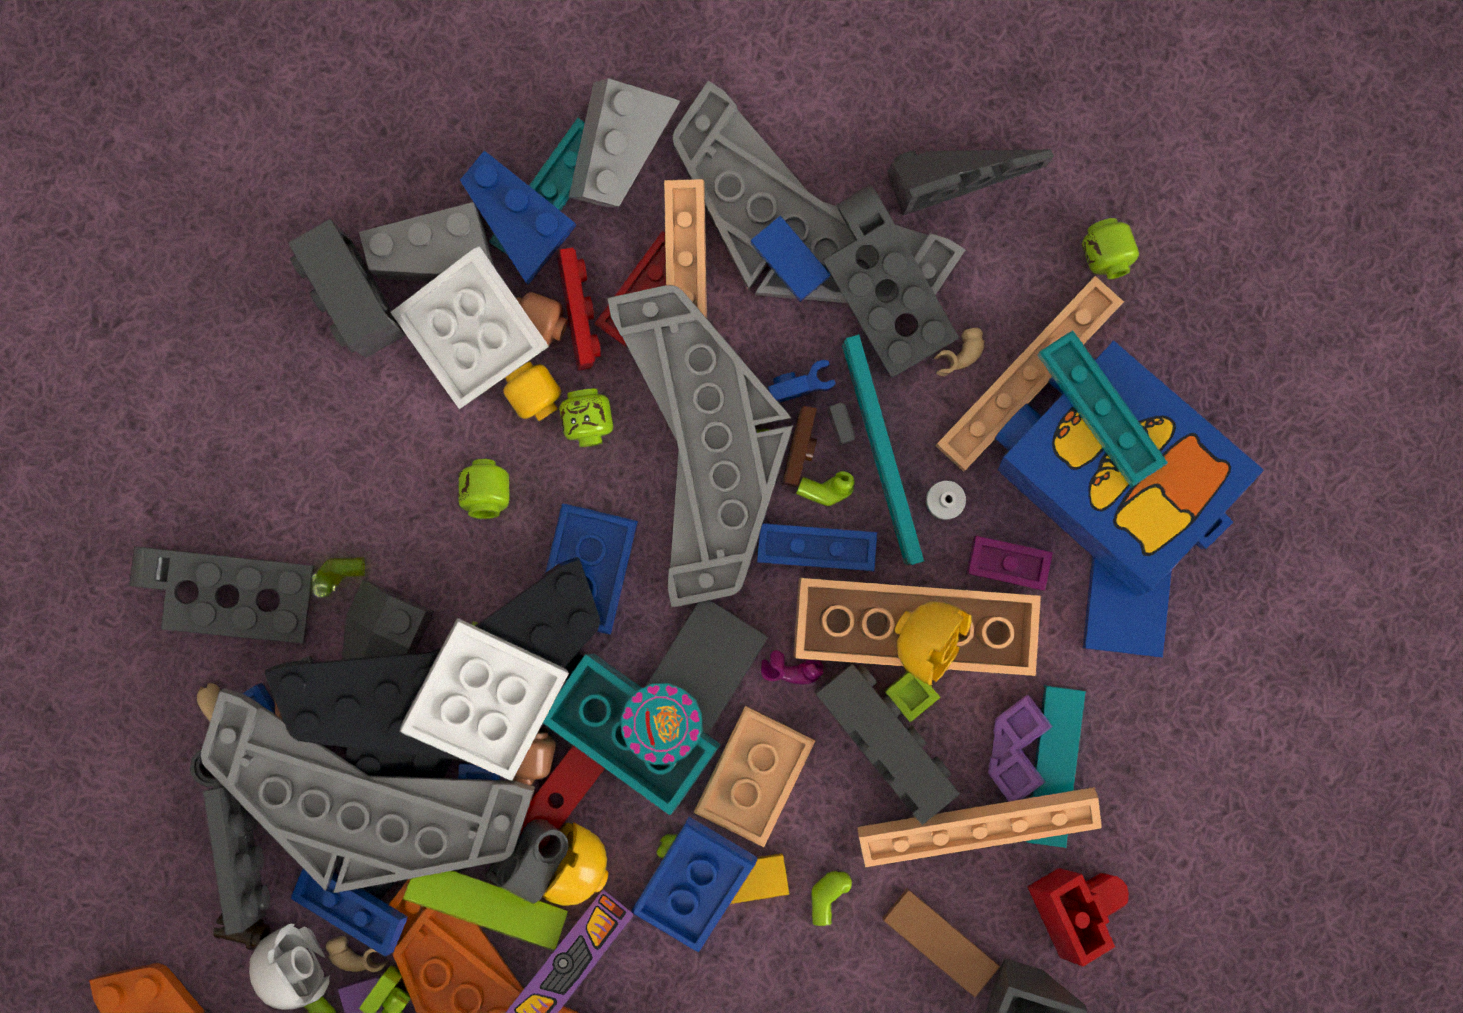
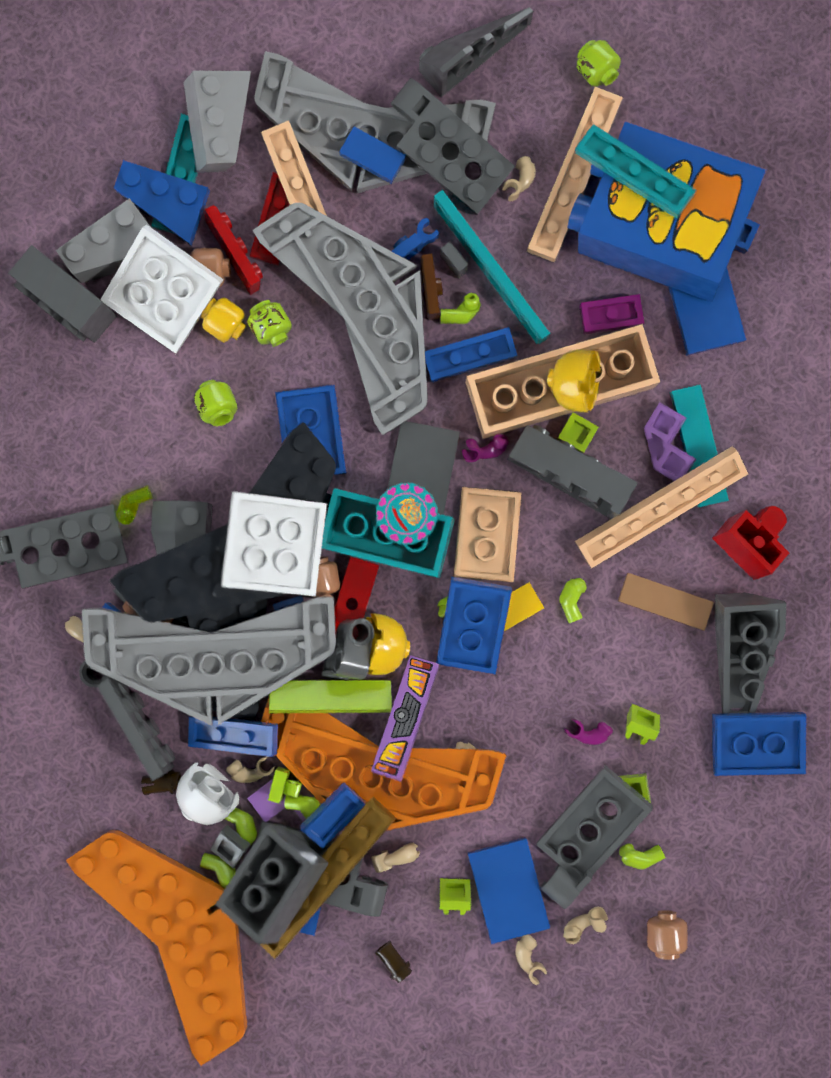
camera: 15 degrees left, 0 degrees up
(936, 500) = (549, 293): white tile -> none

